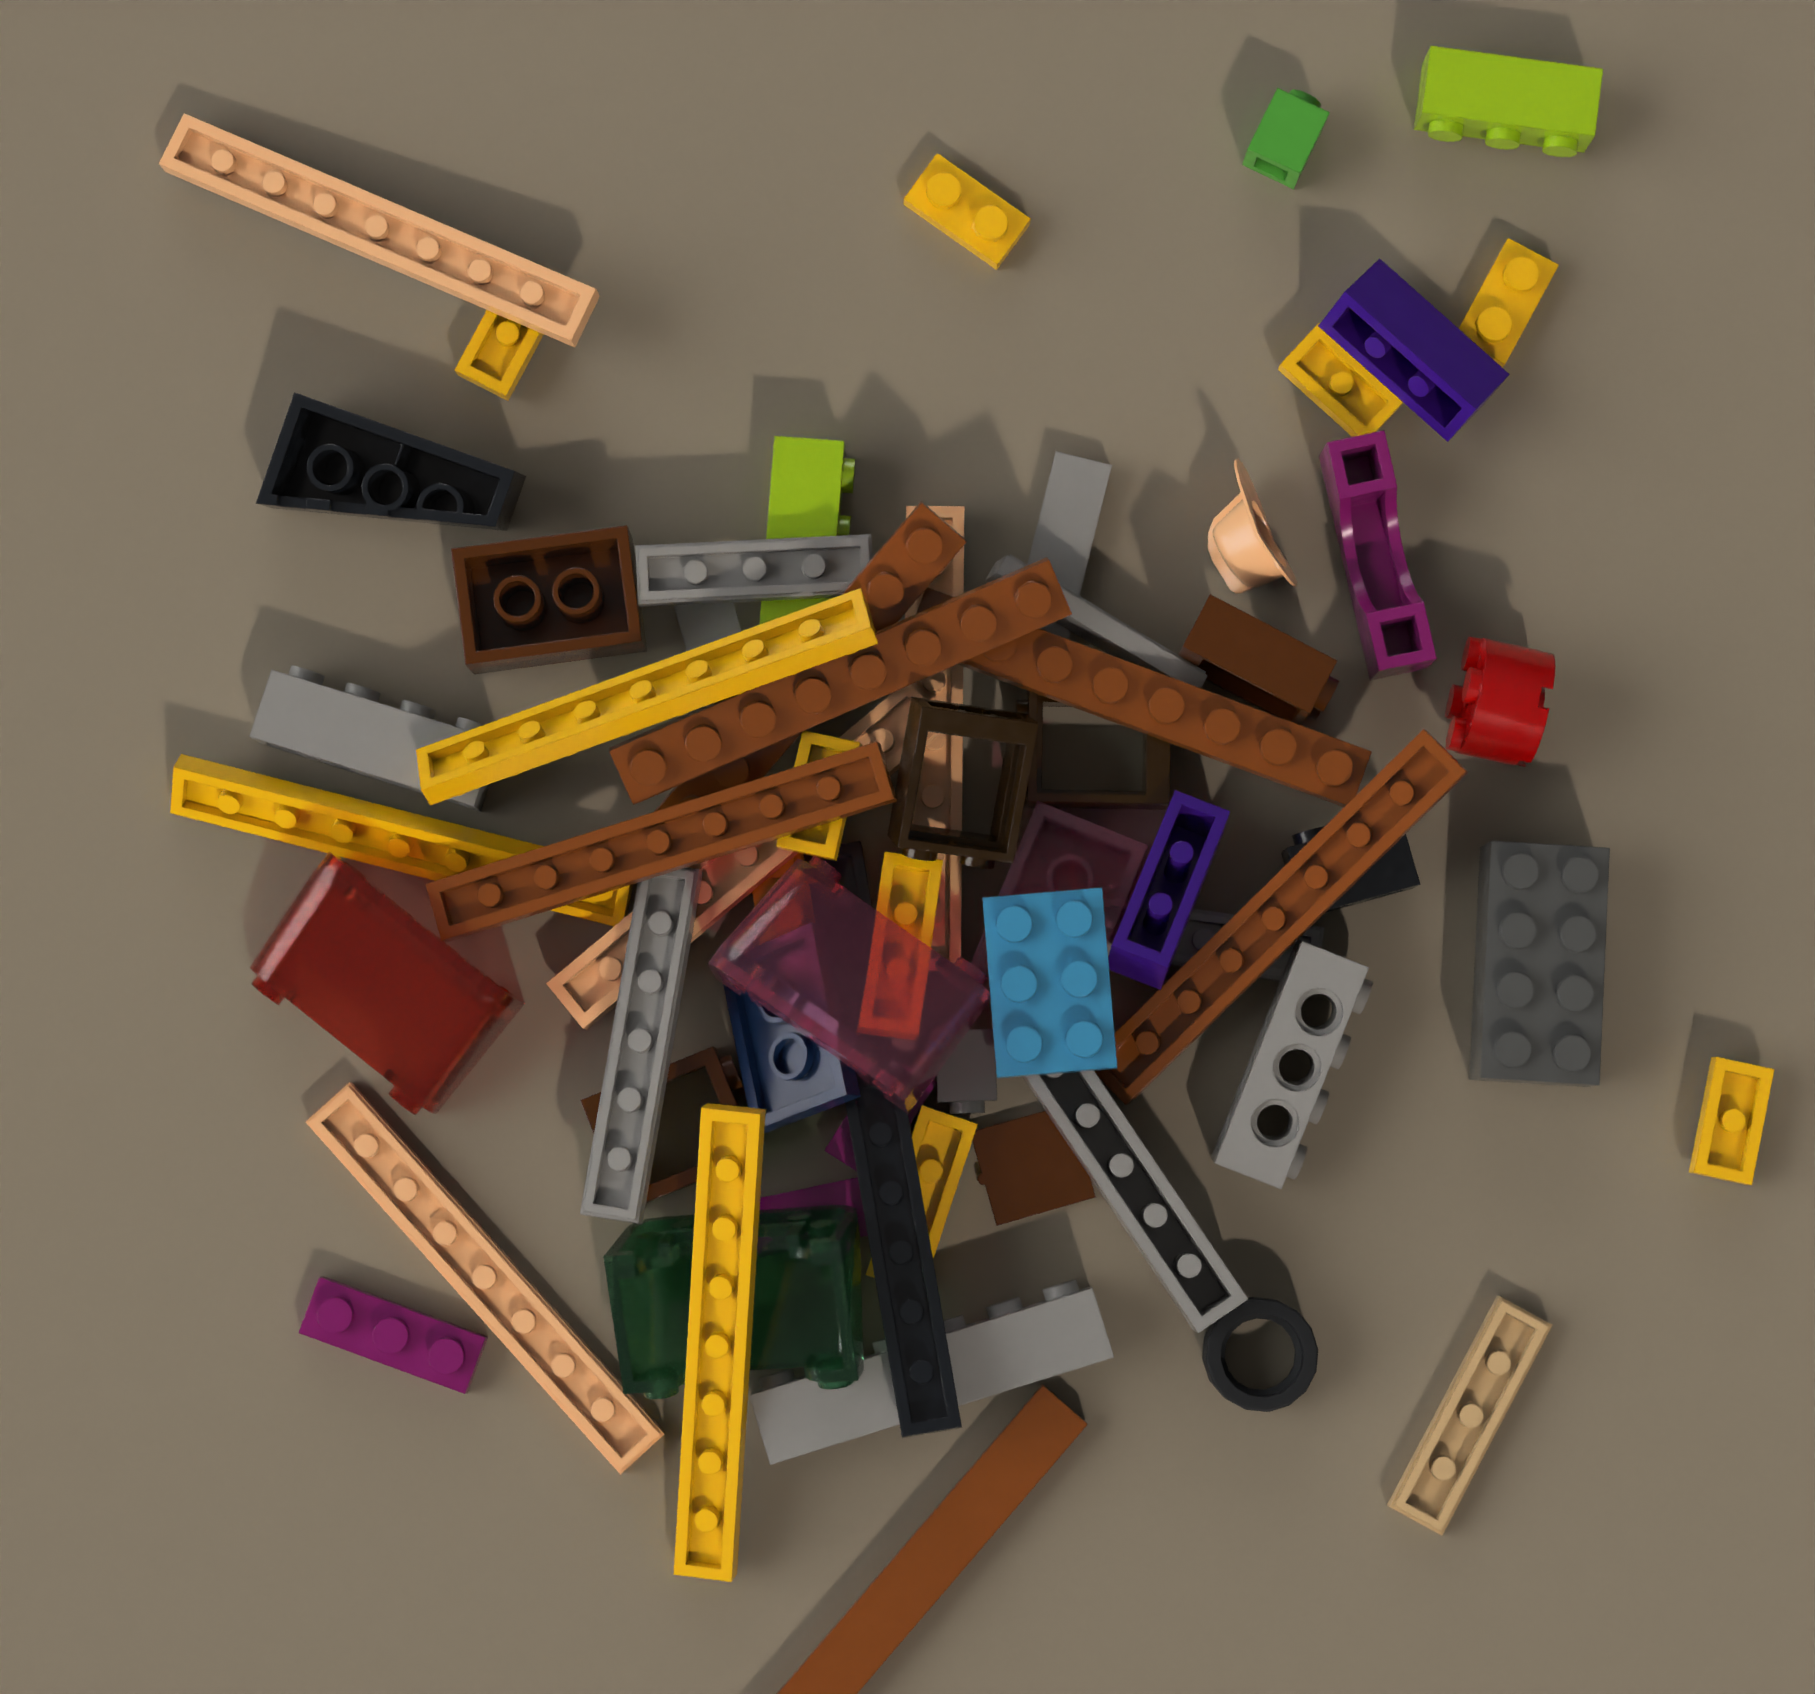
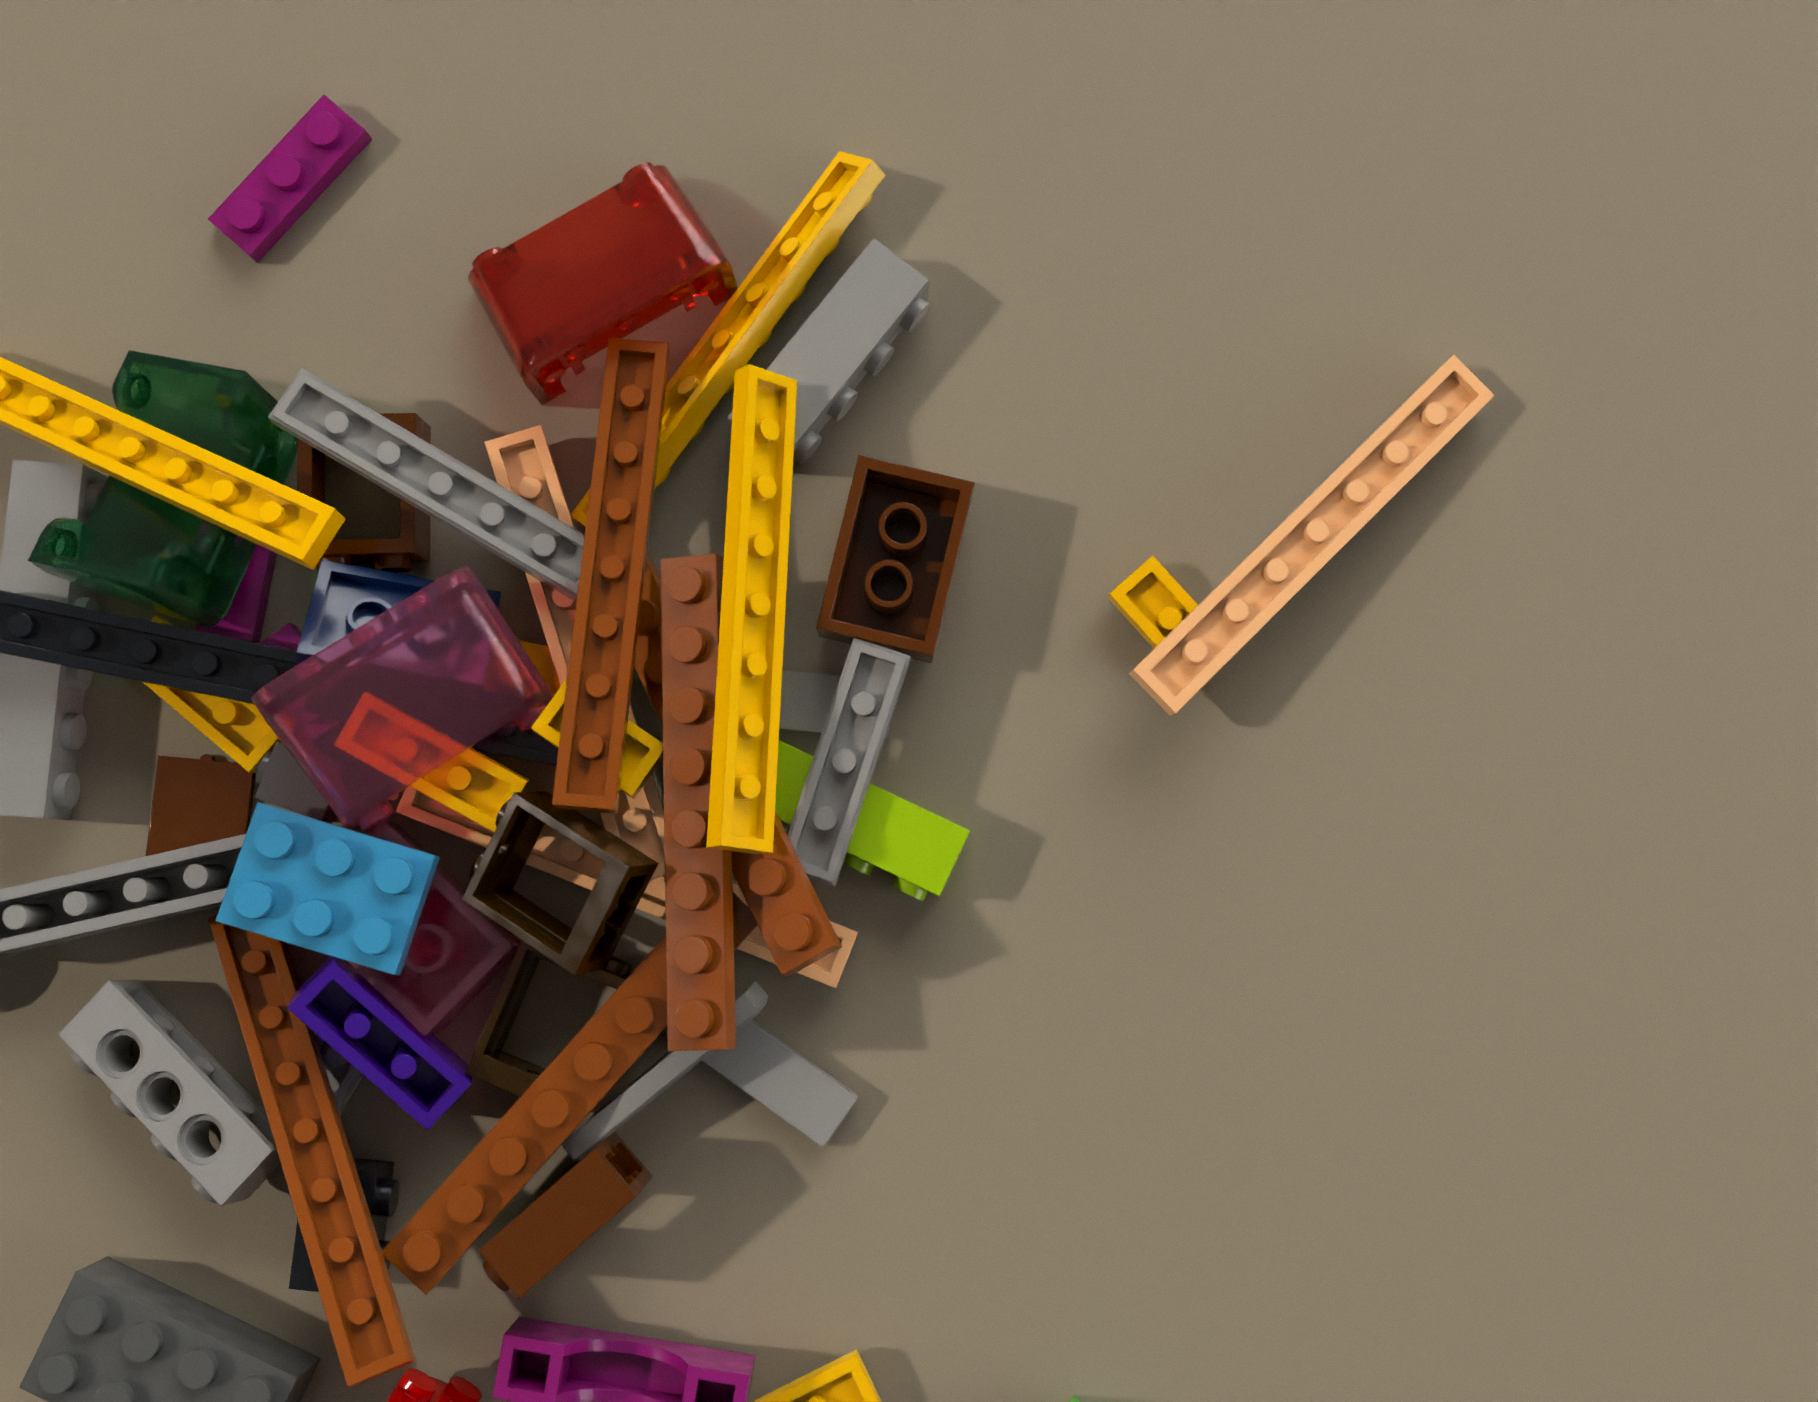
camera: 110 degrees right, 0 degrees up
(371, 470) = (1086, 441): black wedge -> none
(485, 1277) = (311, 275): light nougat tile -> none
(966, 211) = (1127, 1104): yellow plate -> none
(1243, 541) = (692, 1246): light nougat piece -> none

